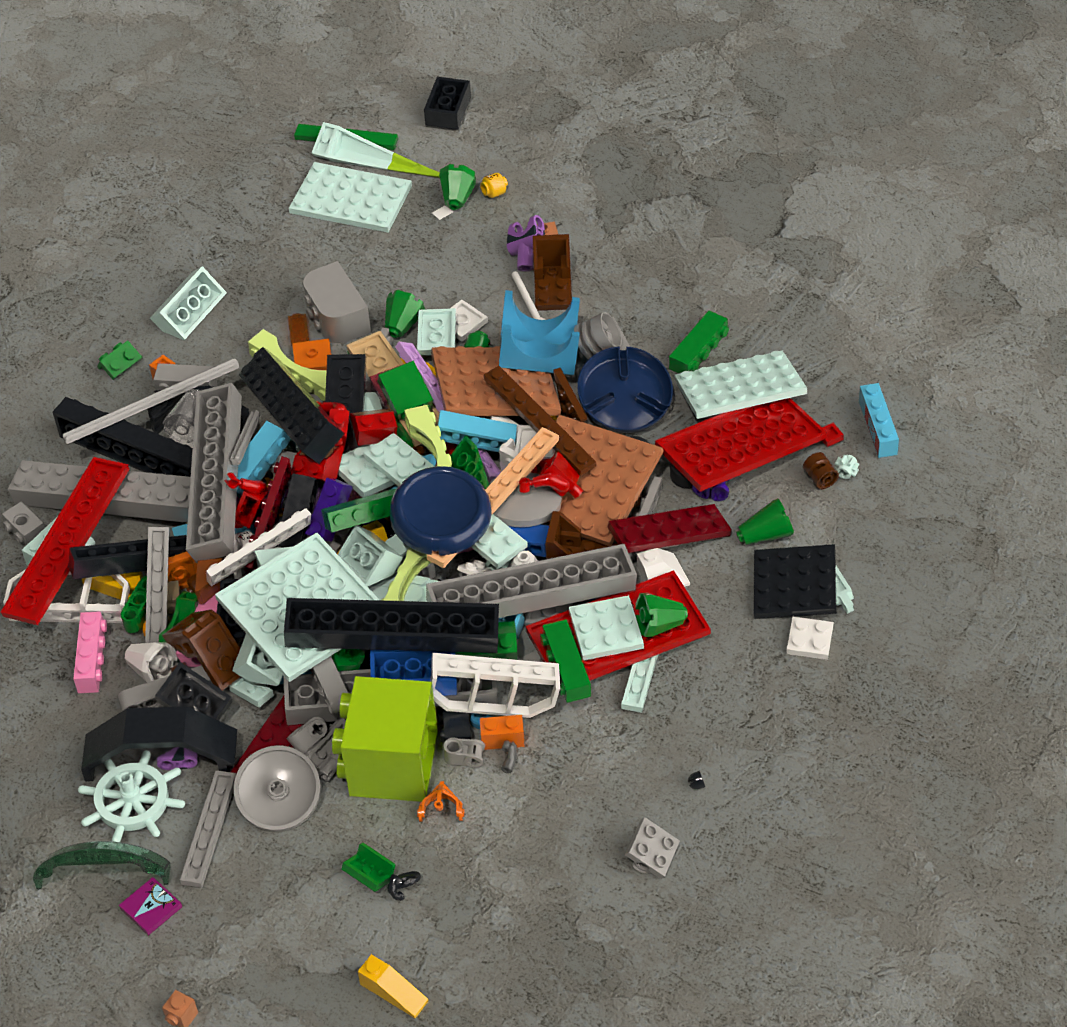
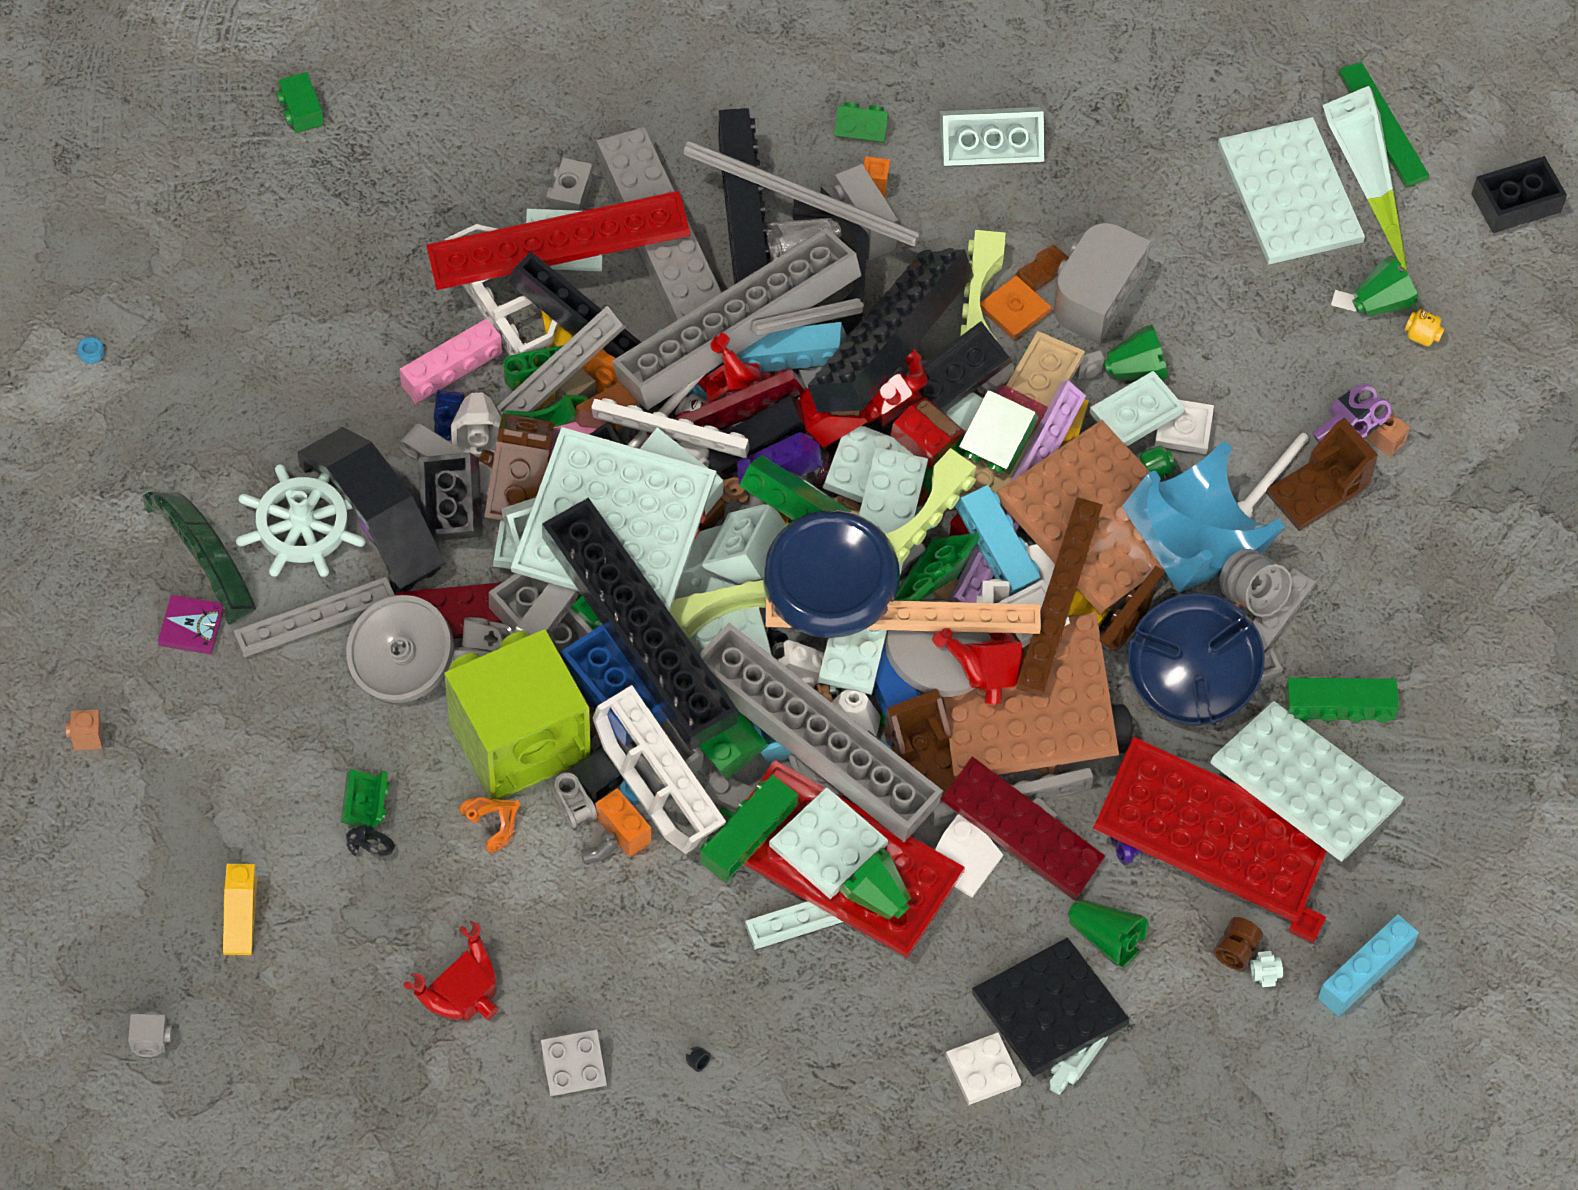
camera: 50 degrees right, 10 degrees up
(123, 673) = (446, 407): none -> clear blue piece
(550, 880) = (463, 986): none -> red torso

